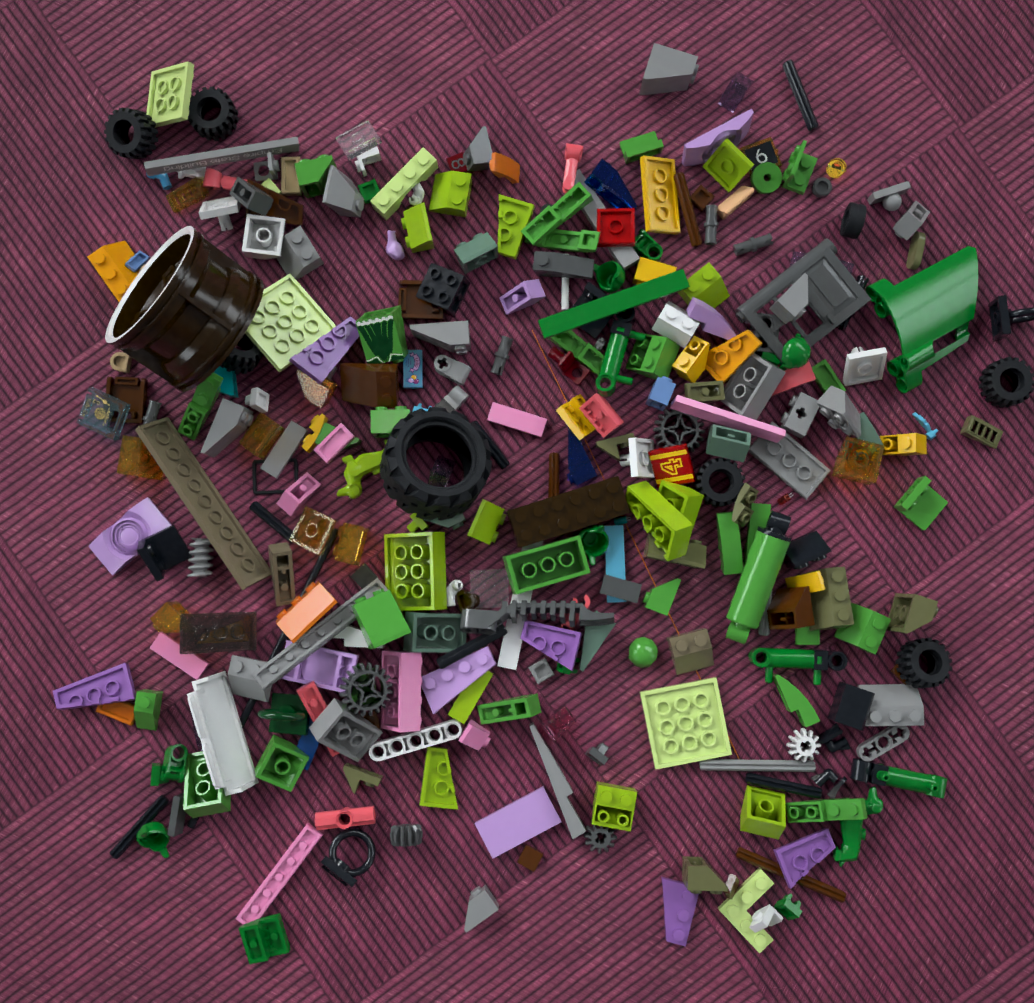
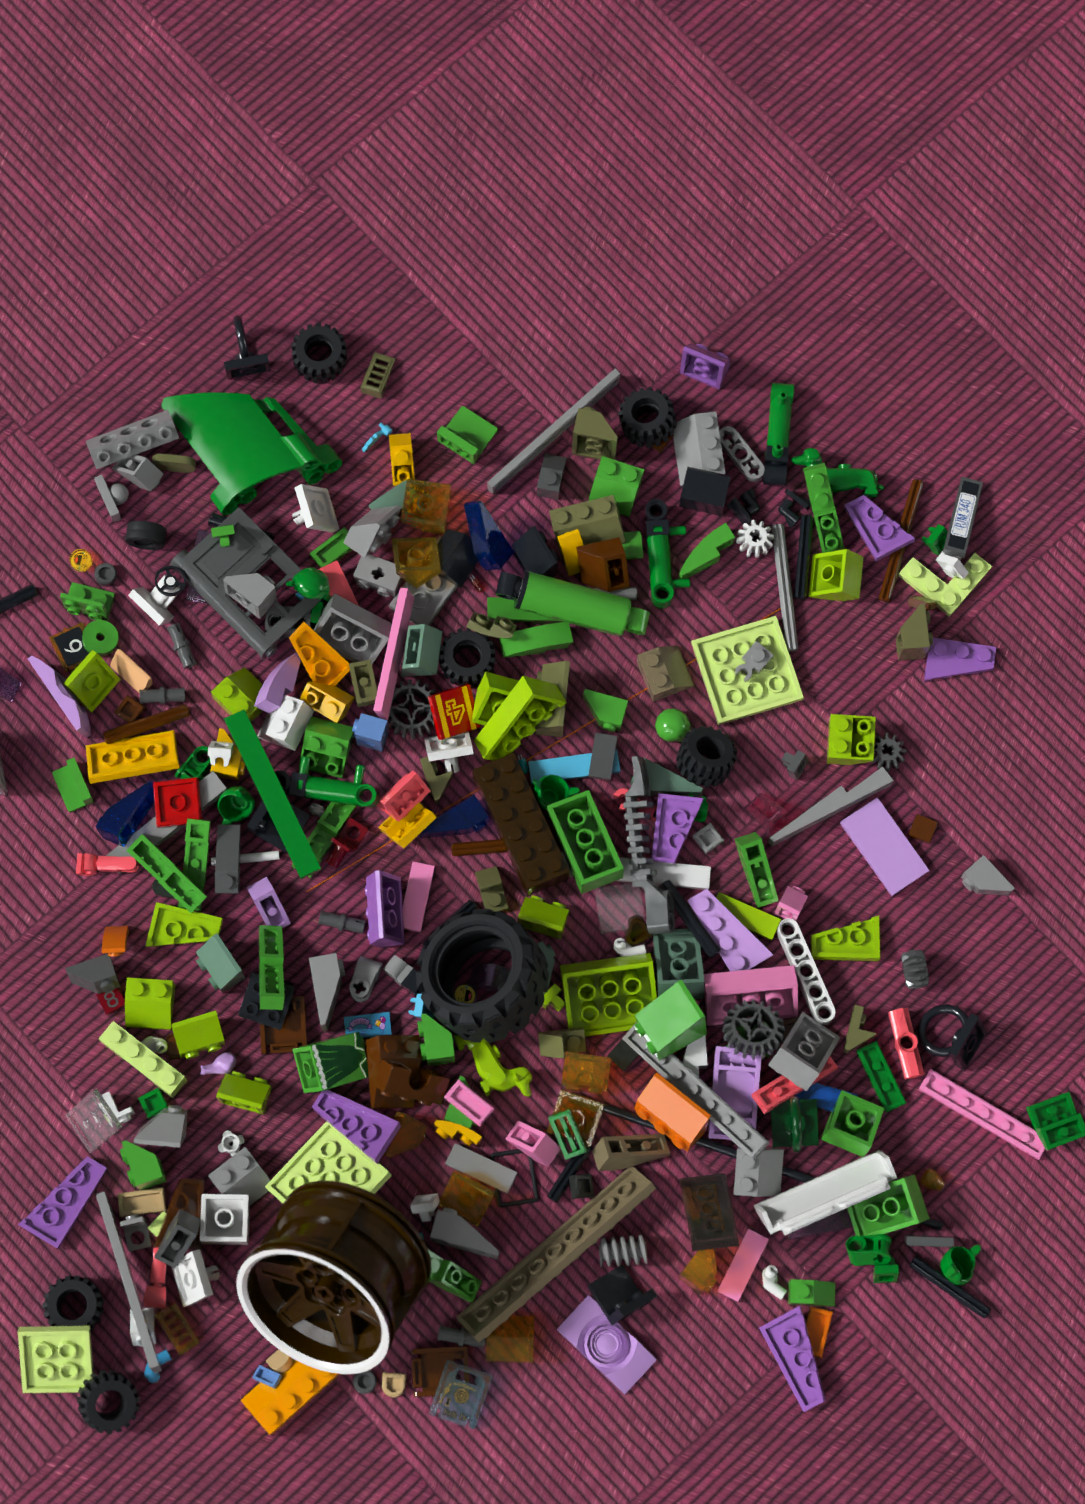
camera: 100 degrees left, 10 degrees down
(162, 677) = (770, 1282): none -> white arm
(229, 823) = (932, 1180): none -> clear yellow hose
(258, 530) = (581, 1186): none -> pearl dark grey tile
(293, 112) = (61, 1209): none -> medium lavender wing
(314, 519) = (560, 1115): none -> green tile
(320, 792) = (881, 1076): none -> green tile
(327, 244) = (227, 1138): none -> white plate
(355, 382) = (426, 1088): none -> reddish brown arch
(366, 261) = (244, 1093): none -> lime slope
(380, 524) = (558, 1042): none -> olive slope
(429, 451) = (465, 993): none -> tile
(466, 291) = (271, 967): none -> bright green slope
(506, 391) = (384, 909): none -> medium lavender slope
(516, 482) = (491, 889): none -> olive slope
(619, 687) = (701, 769): none -> black tyre
(656, 264) = (220, 749): none -> white tile
(693, 731) = (755, 659): none -> light grey plate
(793, 227) = (160, 598): none -> white piece
(806, 934) = (962, 517): none -> tile
(809, 480) = (456, 557): none -> black slope
(810, 446) = (416, 559): none -> clear yellow slope
(824, 509) = (486, 537): none -> clear blue slope
(848, 282) = (223, 532): none -> bright green tile
(876, 572) = (551, 476): none -> dark grey slope
(917, 578) = (552, 432): none -> light grey tile
(940, 216) = (132, 439): none -> light grey brick
(968, 719) = (704, 365): none -> medium lavender slope

